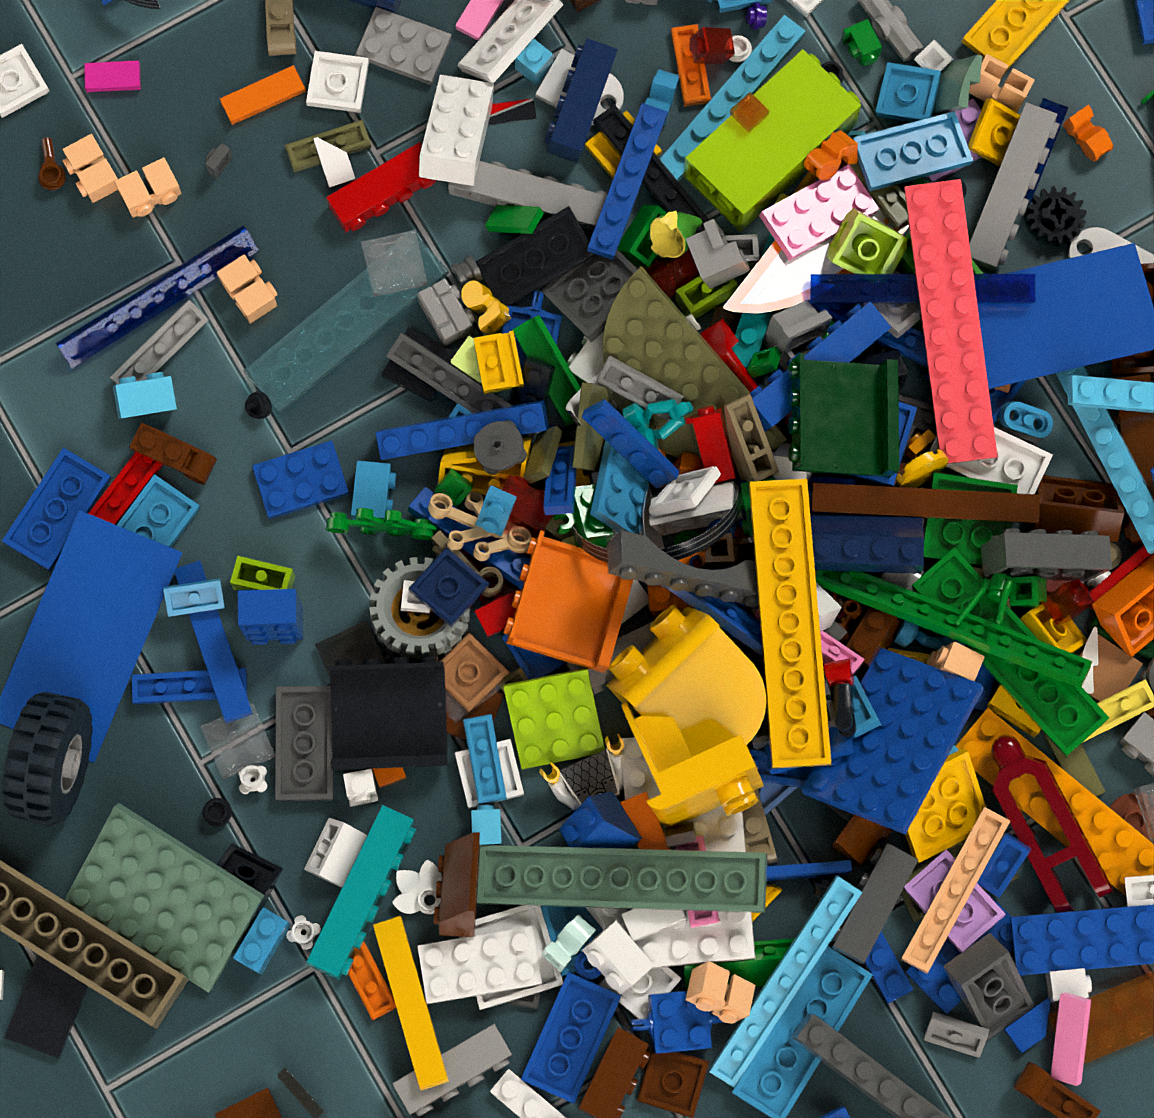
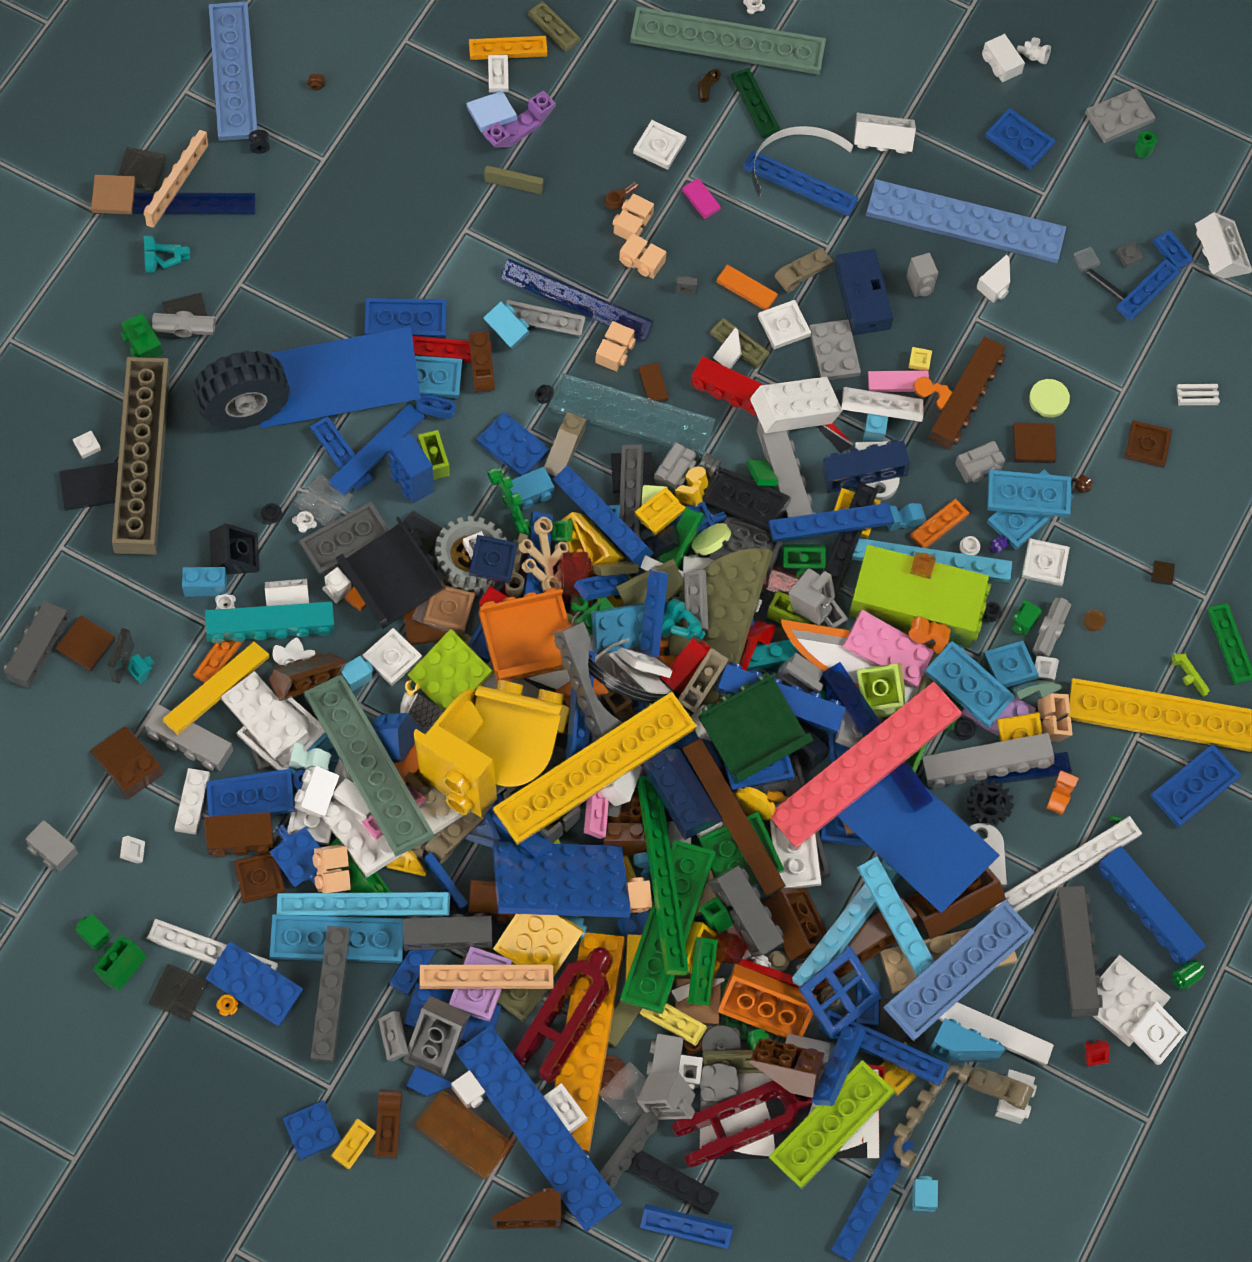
camera: 55 degrees right, 10 degrees down
(164, 897) = (197, 508): sand green plate -> none
(194, 597) = (396, 420): dark azure plate -> none
(196, 540) = (436, 406): none -> blue plate
(319, 273) = (653, 382): none -> reddish brown tile
(328, 1079) = (140, 667): none -> teal tile
(340, 421) = (565, 444): none -> dark tan slope
(394, 263) = (686, 419): clear plate -> none
(485, 759) = (398, 647): dark azure tile -> none
(496, 510) = (558, 556): dark azure plate -> none
(499, 446) = (601, 536): dark grey piece -> none
(569, 325) = (711, 539): none -> yellowish green tile
(670, 233) = (814, 560): light yellow hat -> none
(712, 45) = (958, 526): clear red brick -> none
(764, 362) = (763, 666): green tile -> none
(840, 678) = (568, 829): black piece -> none
(864, 713) = (568, 843): dark azure plate -> none
(999, 591) = (702, 891): green plant -> none
(1003, 865) = (522, 1001): blue plate -> none
(1024, 417) = (836, 857): dark azure plate -> none
(1070, 1038) = (432, 1108): bright pink tile -> none
(1082, 644) = (702, 971): none -> green plate

